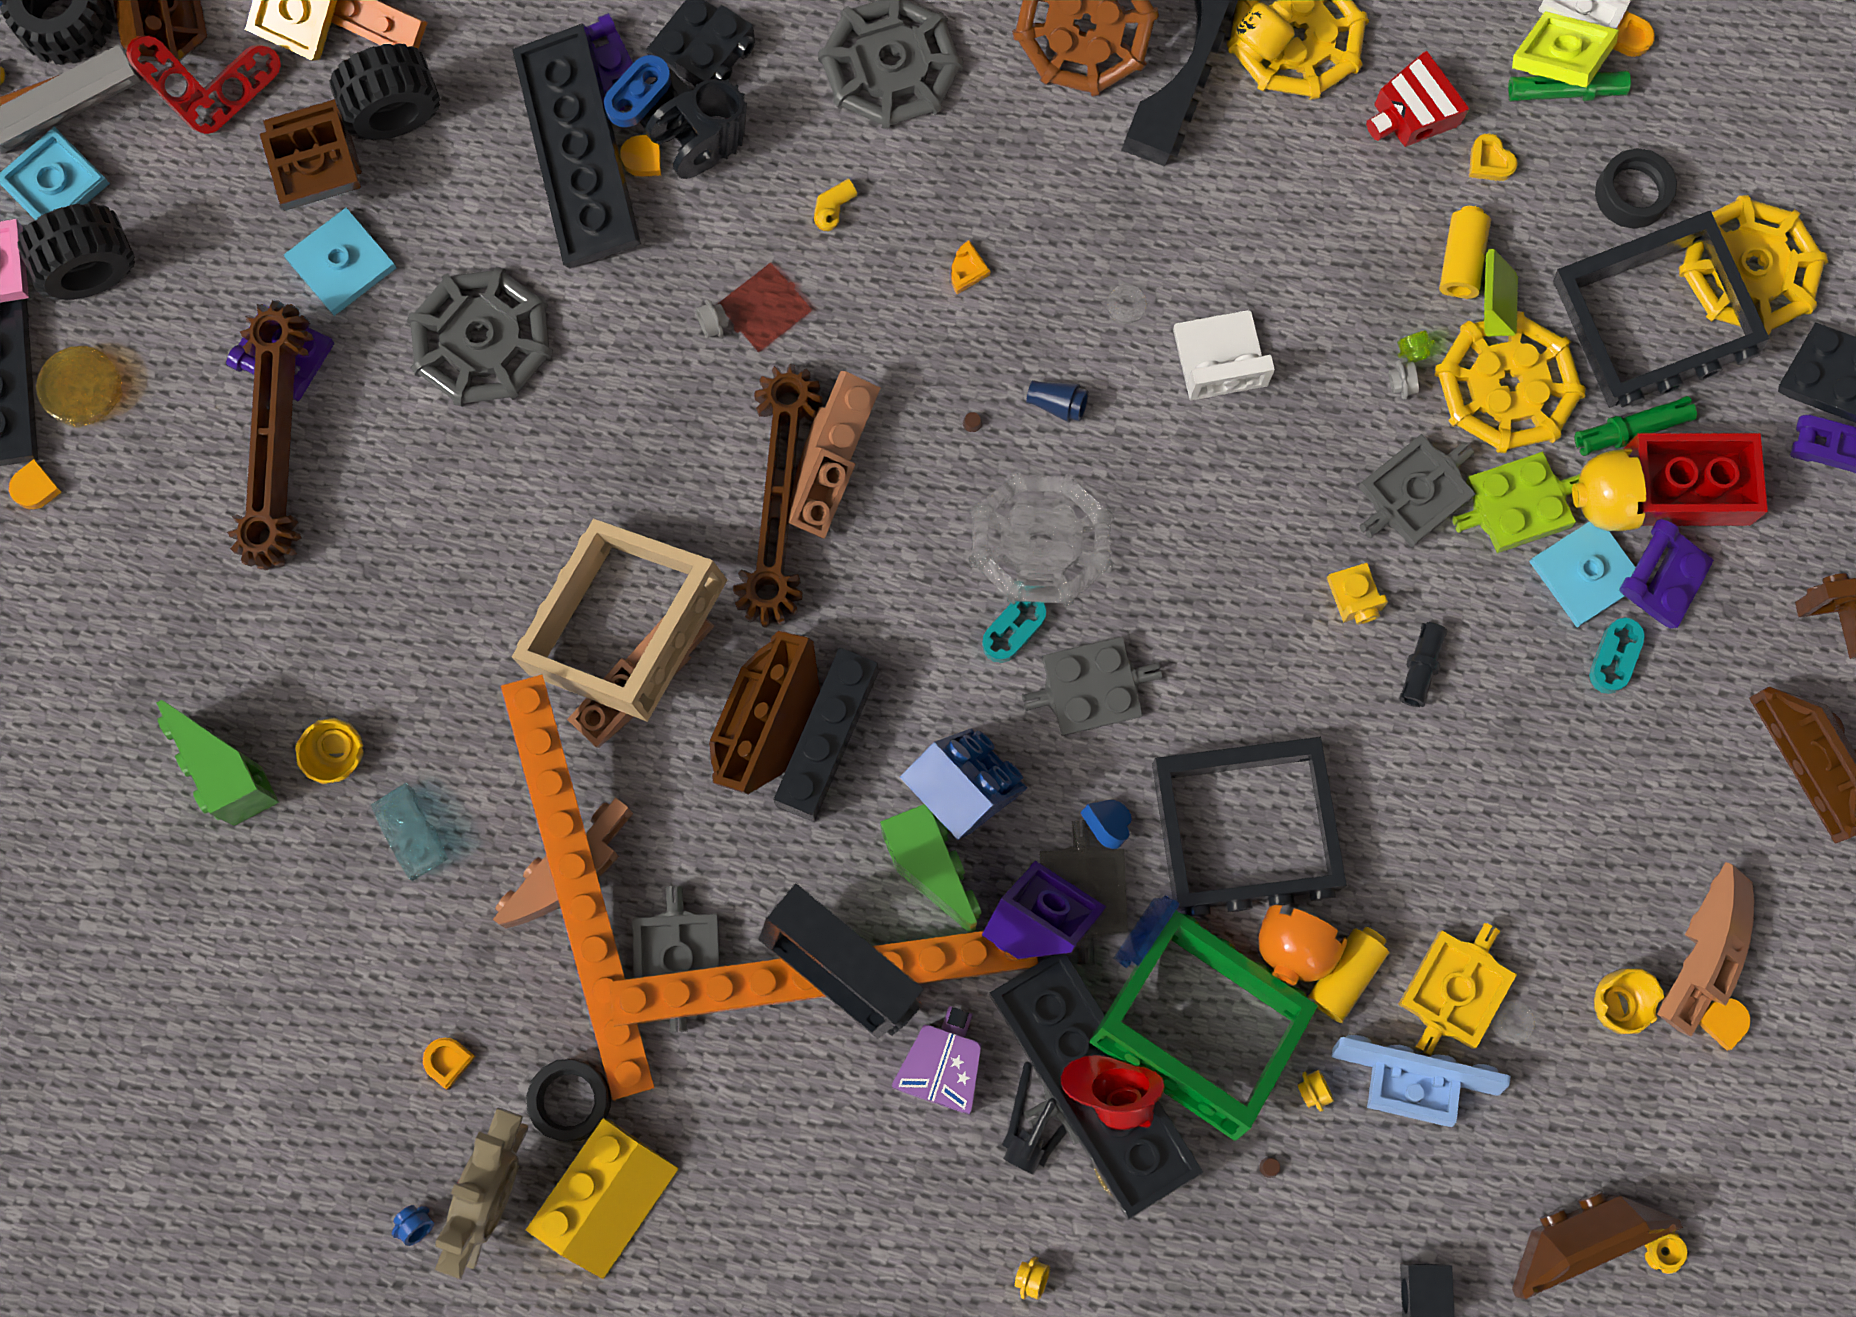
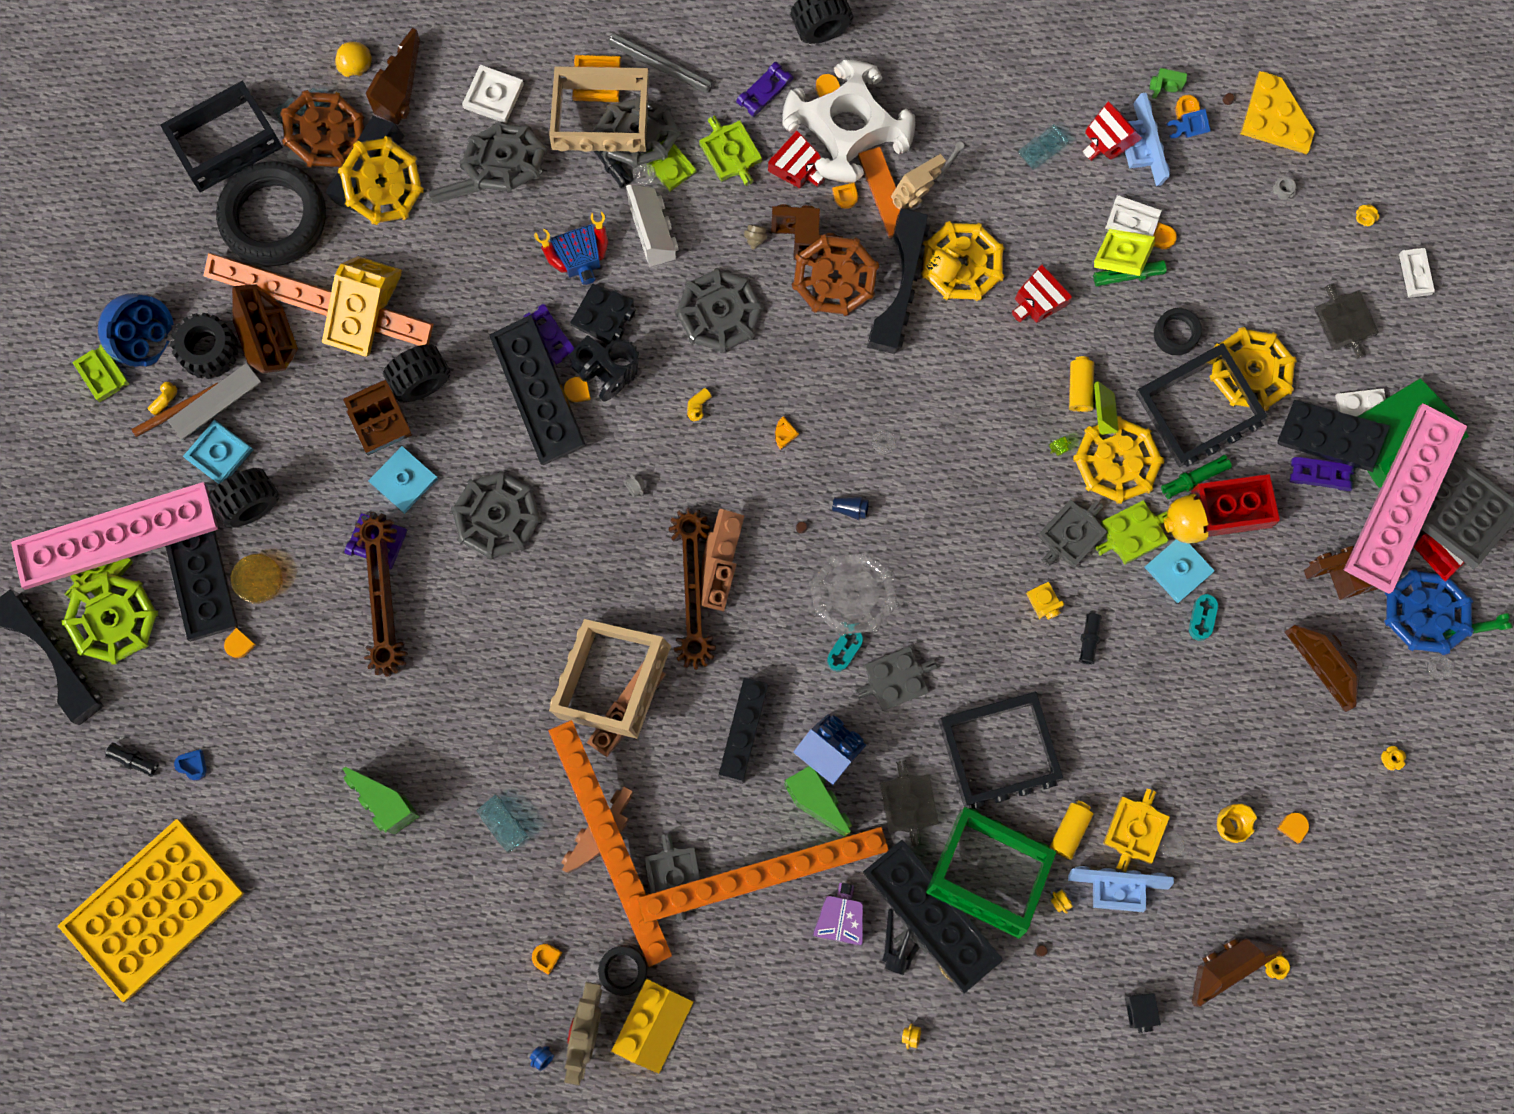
camera: 10 degrees left, 0 degrees up
(195, 93) = (299, 389): red beam -> none
(327, 738) = (445, 773): yellow hair -> none
(636, 93) = (571, 354): blue plate -> none
(764, 307) = (665, 473): clear red piece -> none
(765, 714) = (704, 723): reddish brown wedge -> none
(840, 963) = (777, 869): black window -> none
(1041, 915) = (887, 821): dark purple slope -> none
(1108, 822) = (918, 759): blue tile -> none
(1116, 1090) = (945, 918): red piece -> none
(1146, 931) = (949, 822): clear blue piece -> none
(1221, 355) = (945, 466): white bracket -> none
(1299, 945) = (1040, 818): orange cylinder -> none
(1404, 379) = (1055, 467): light grey plate -> none
(1490, 159) = (1088, 324): yellow tile -> none
(1674, 581) = (1232, 566): dark purple plate -> none
(1722, 941) = (1286, 778): nougat slope -> none

